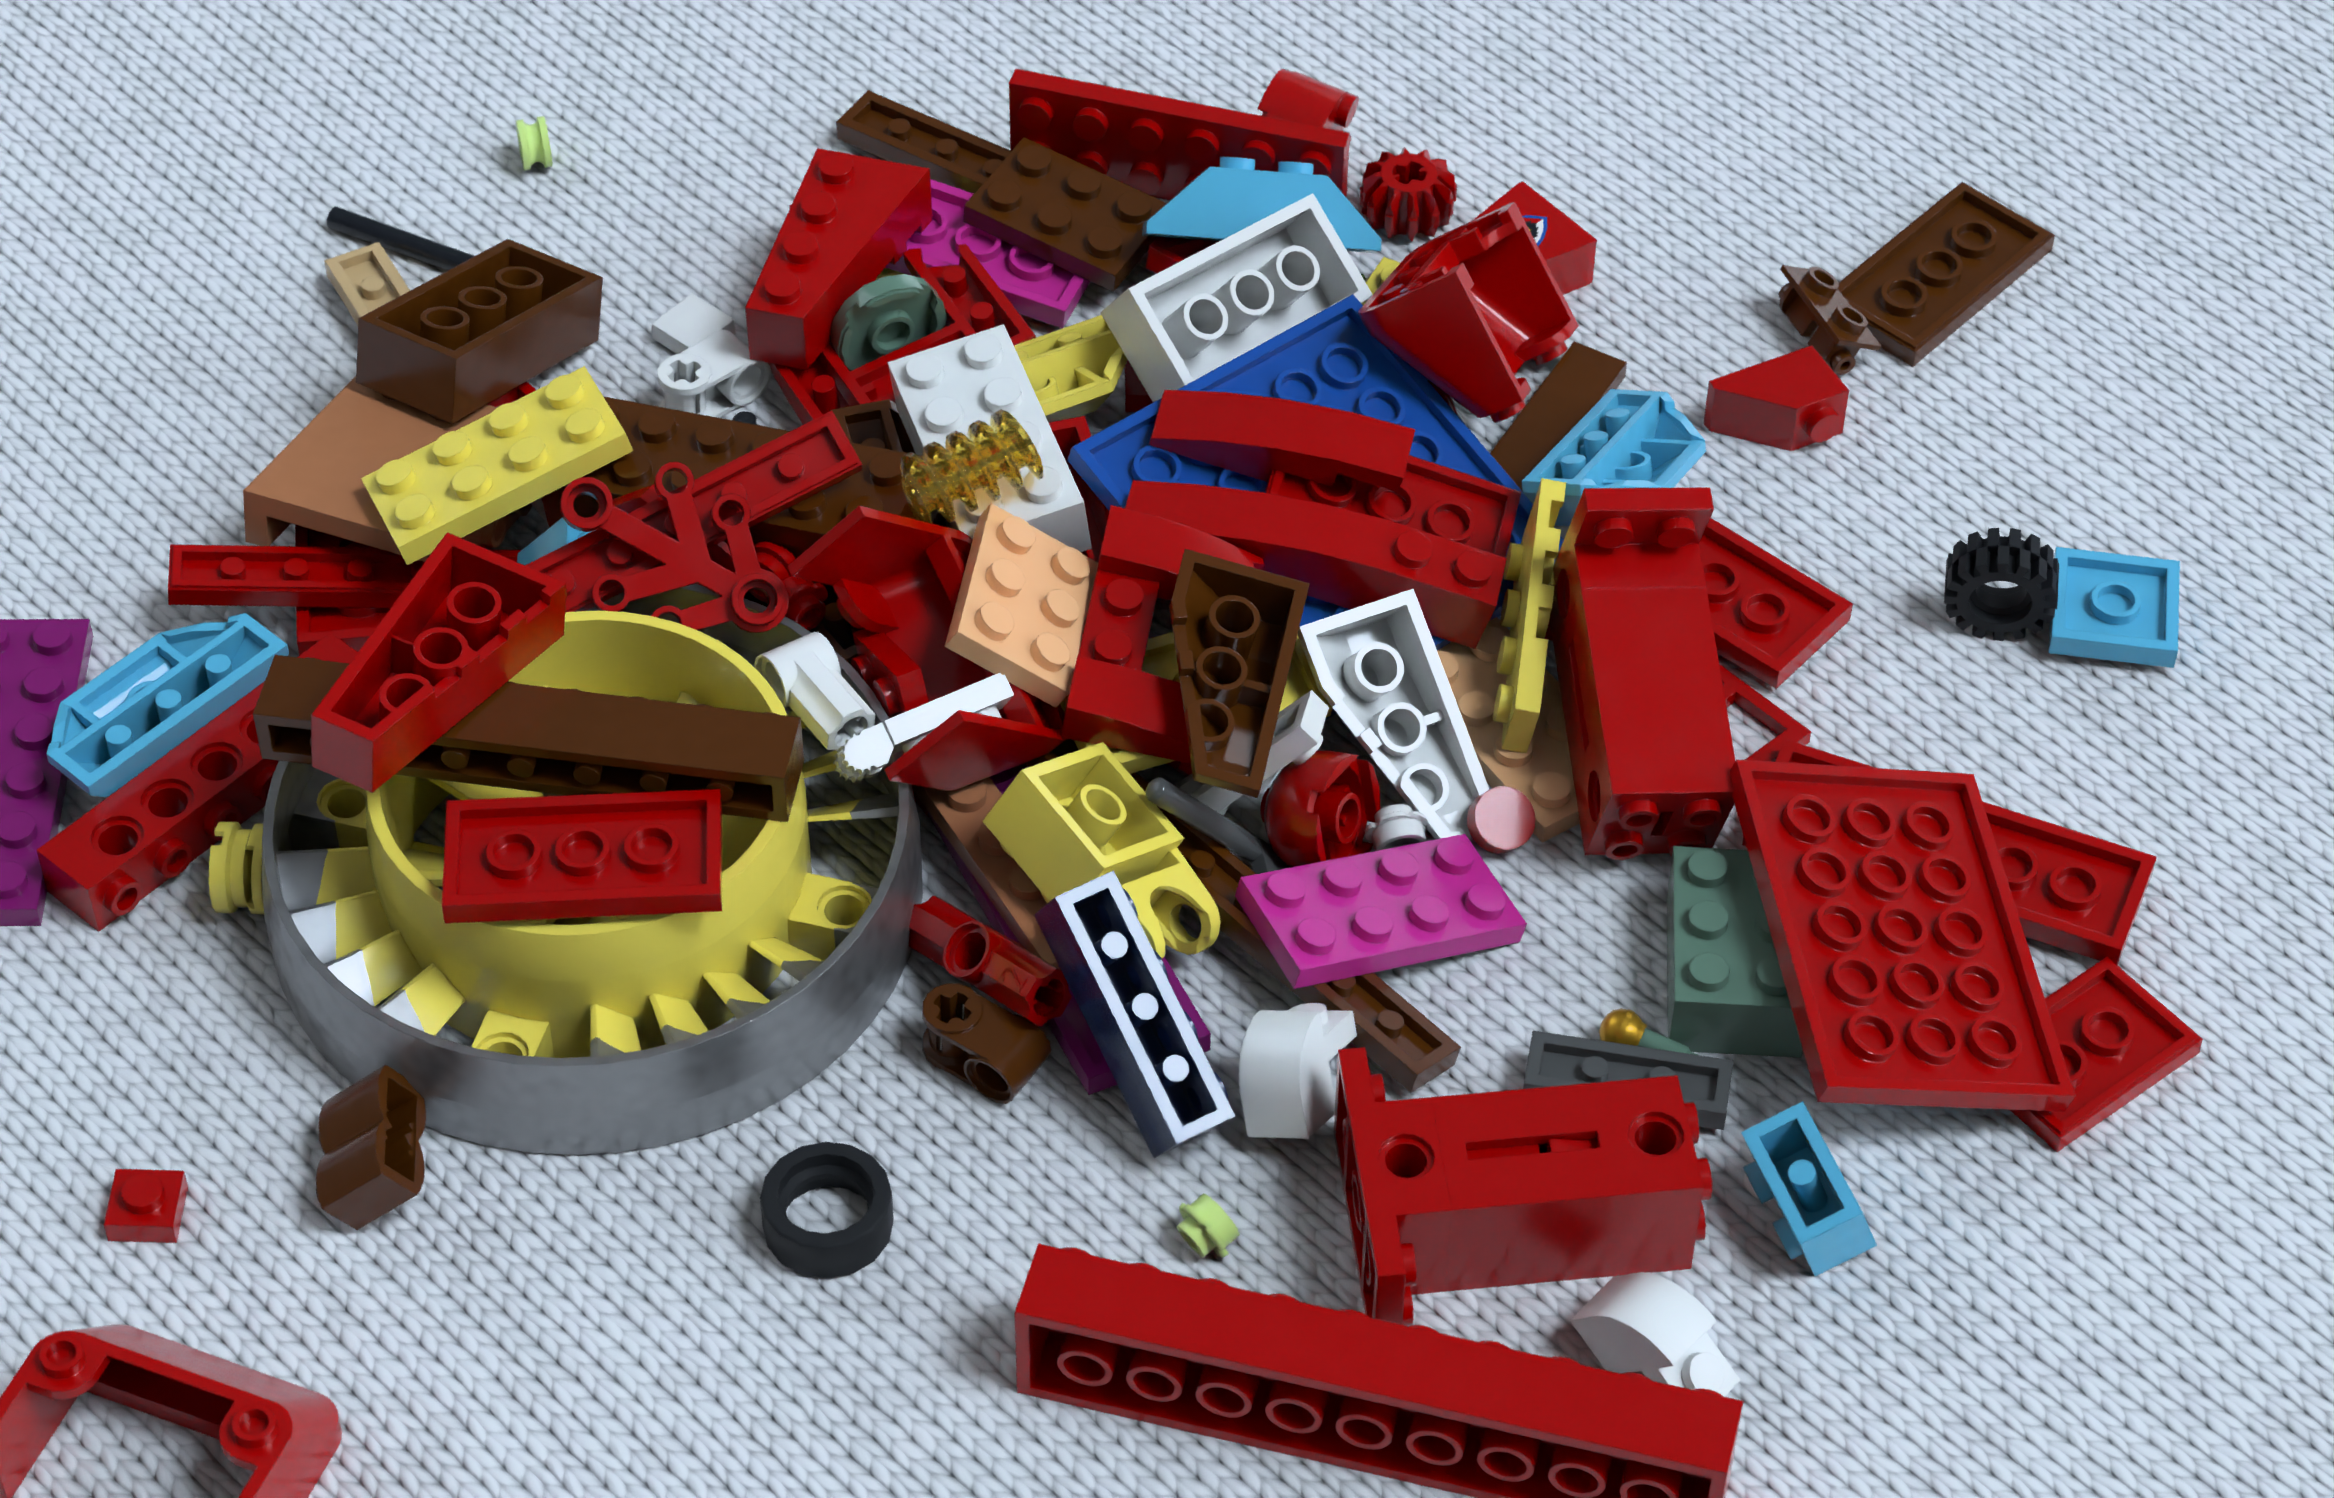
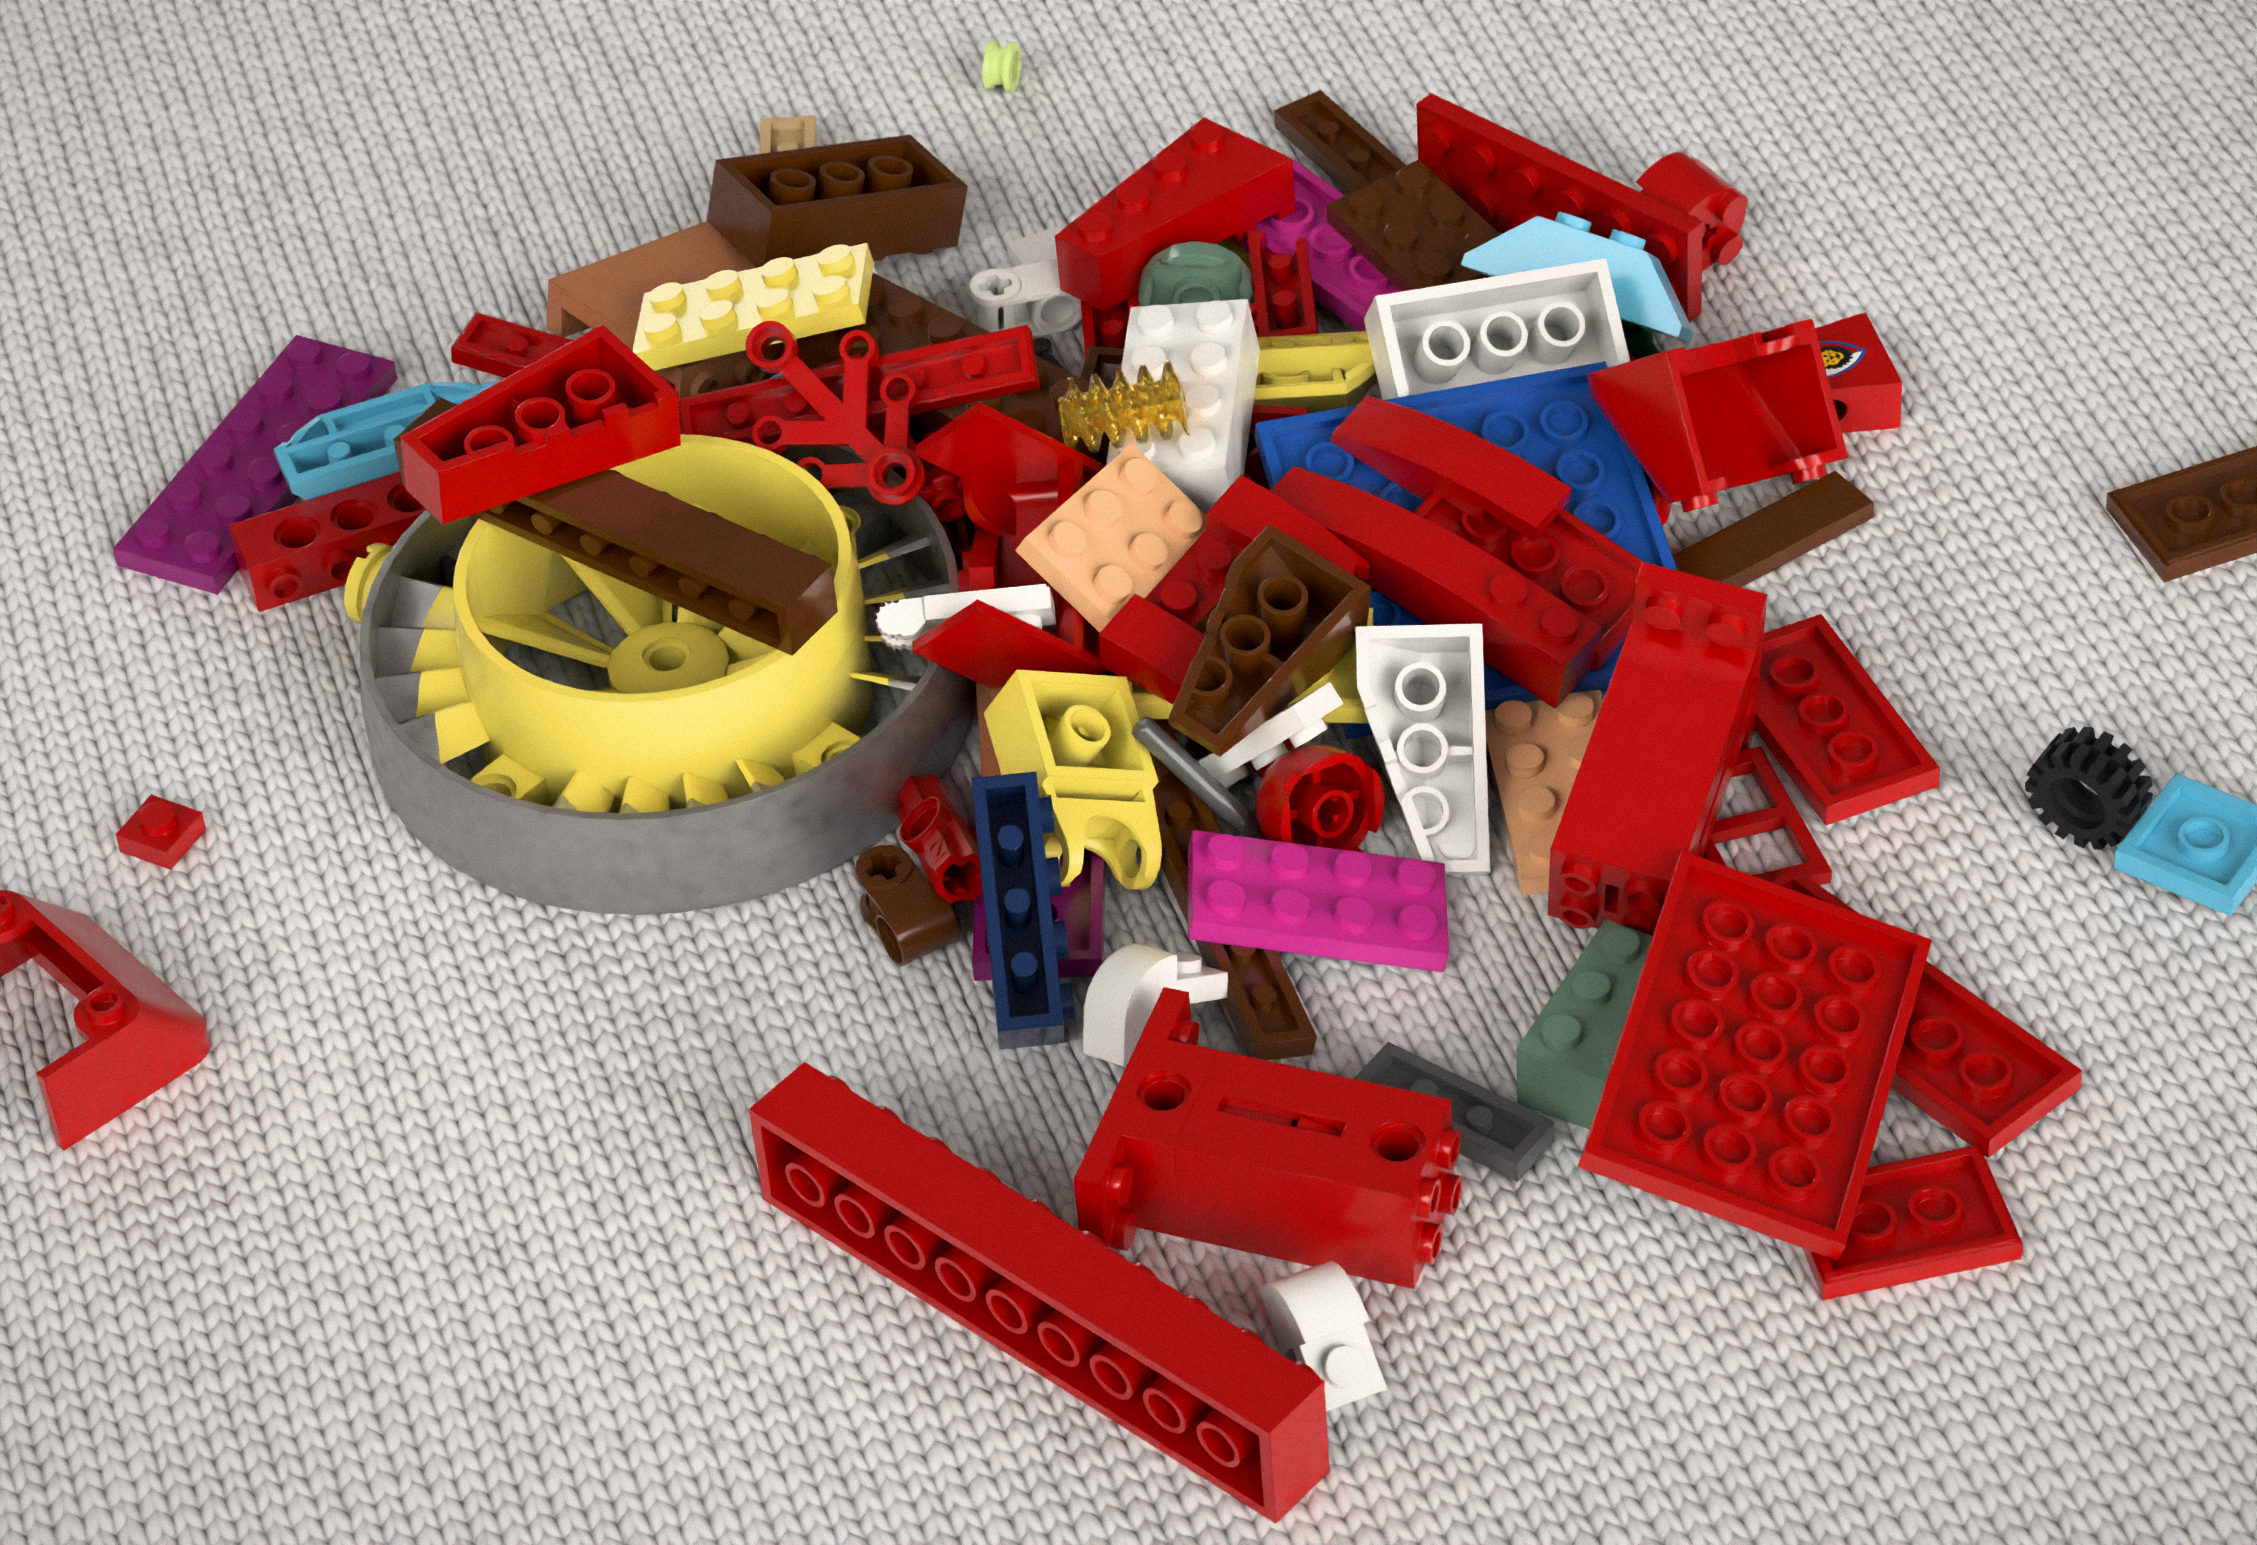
camera: 30 degrees right, 5 degrees down
(370, 1148) = (348, 835): reddish brown brick -> none
(395, 239) = (830, 112): black bar -> none
(582, 856) = (598, 630): red plate -> none
(811, 684) = (898, 555): white piece -> none
(819, 1167) = (692, 1035): black tyre -> none
(1206, 1227) = (999, 1115): yellowish green plate -> none
(1396, 827) = (1383, 837): white plate -> none
(1408, 194) = (1760, 297): red gear -> none
(1501, 819) = (1484, 860): tile -> none
(1528, 614) = (1564, 741): light yellow wing -> none
(1620, 443) = (1800, 568): medium azure wedge -> none
(1627, 1028) = (1482, 1069): pearl gold piece -> none
(1779, 402) = (1993, 573): red slope -> none
(1809, 1189) = (1542, 1246): medium azure brick -> none
(1815, 301) = (2095, 510): reddish brown hinge -> none

